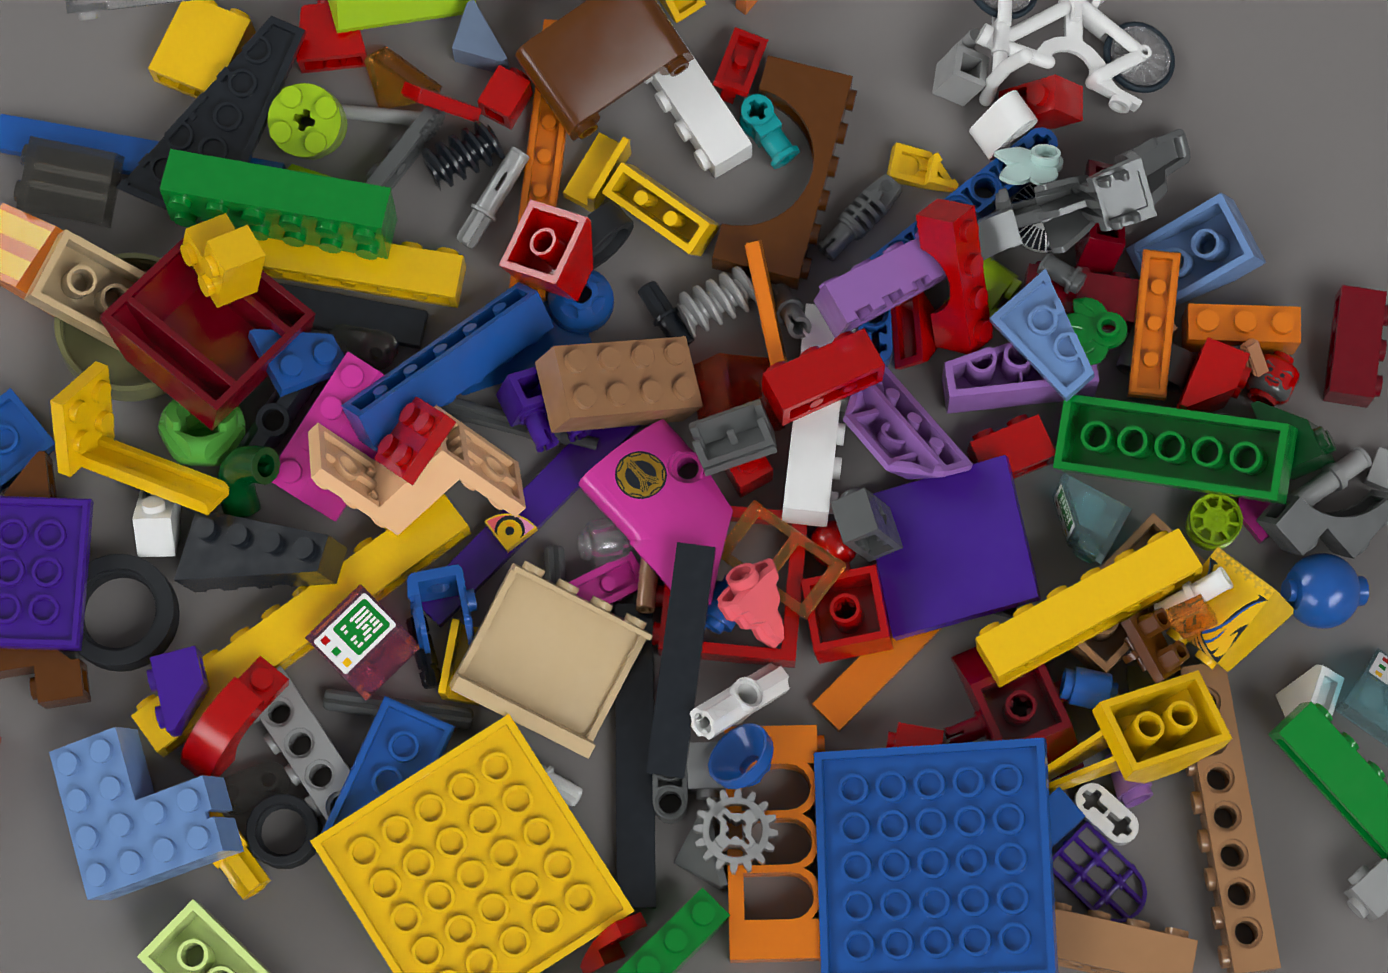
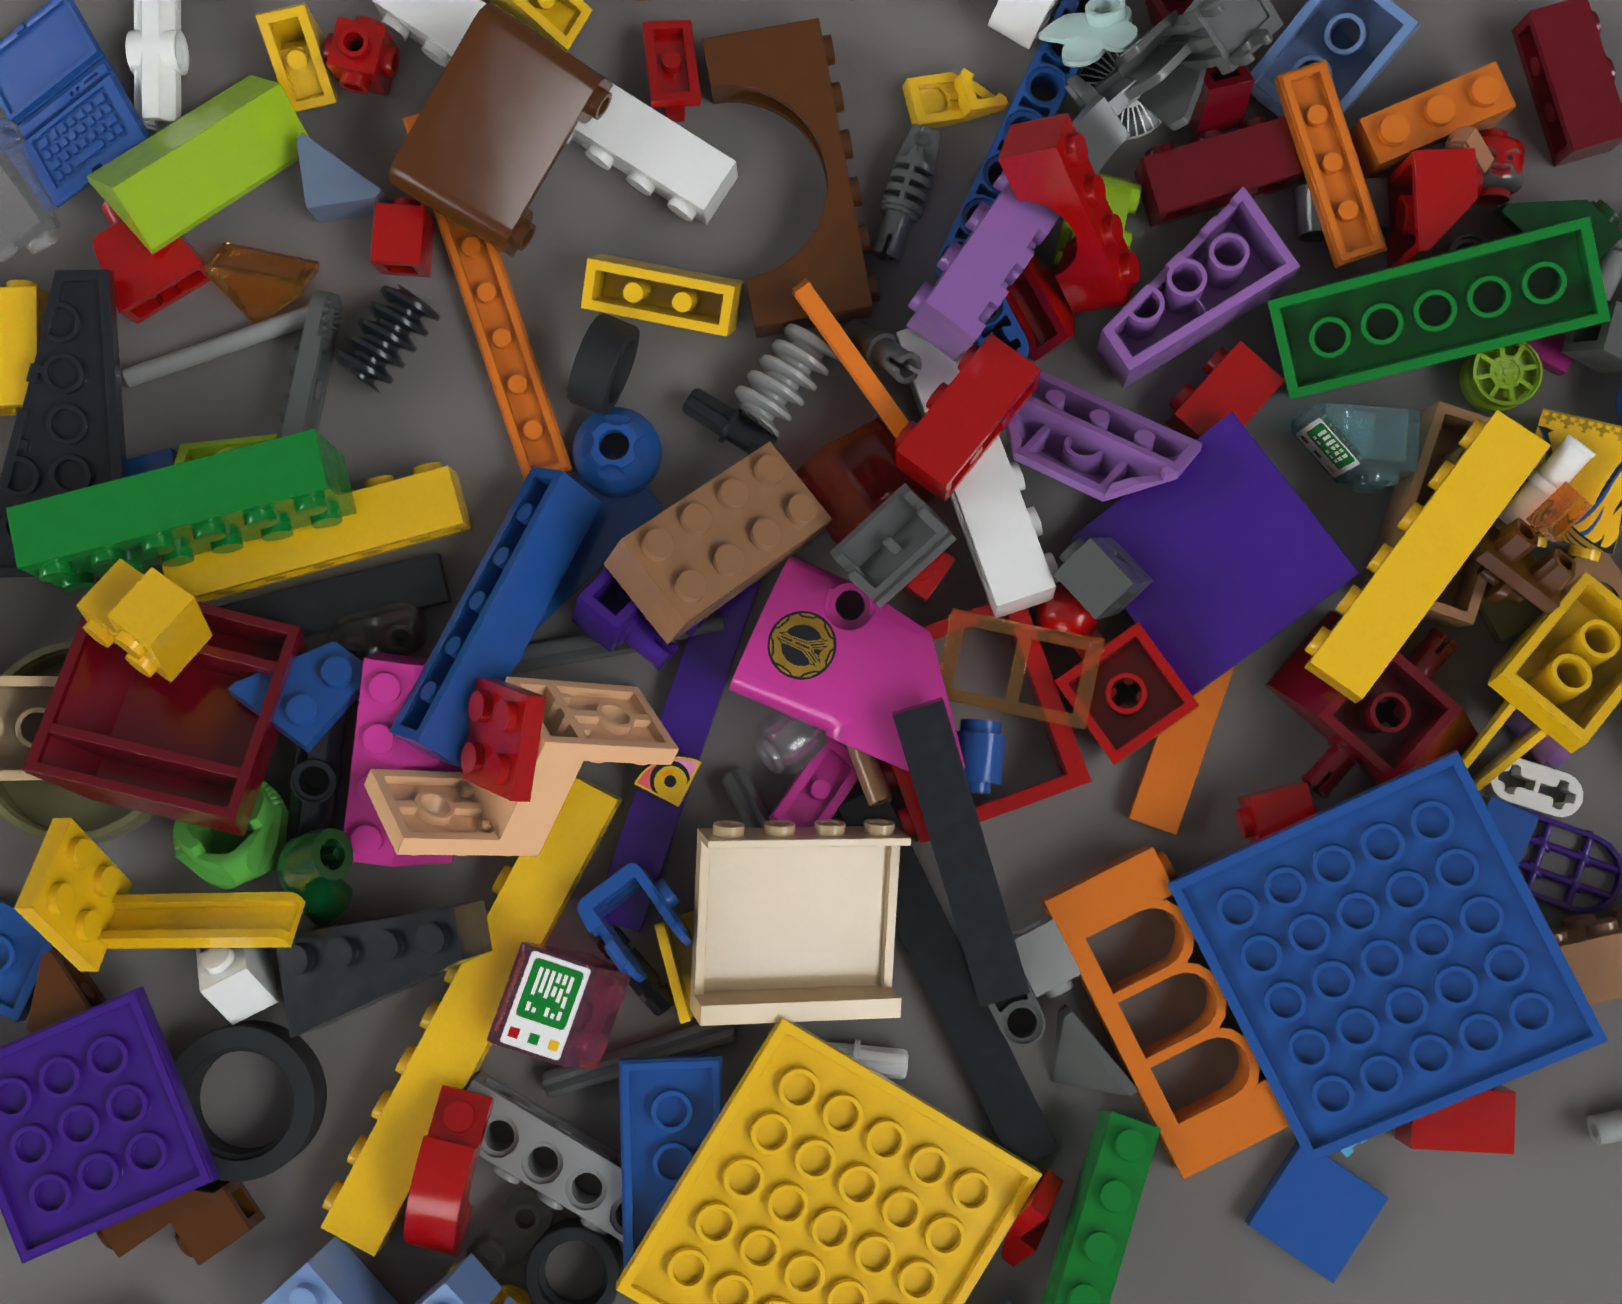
camera: 25 degrees left, 10 degrees up
(180, 685) = (362, 1174): dark purple slope -> none
(286, 126) = (161, 411): lime brick -> none
(441, 101) = (325, 283): red tile -> none
(491, 200) = (448, 379): light grey axle -> none
(551, 250) = (554, 410): red slope -> none
(596, 171) = (560, 282): yellow panel -> none
(723, 843) = (1130, 1009): light grey gear -> none
(736, 753) = (1074, 935): blue piece -> none
(739, 701) = (1049, 865): white piece -> none
(754, 601) = (1015, 738): coral rock -> none
(767, 131) = (743, 135): teal connector -> none
(1044, 336) = (1214, 242): medium blue wing -> none
(1063, 273) = (1193, 151): dark grey pin -> none
(1086, 687) = (1461, 654): blue brick -> none
(1087, 323) = (1257, 212): green plate -> none

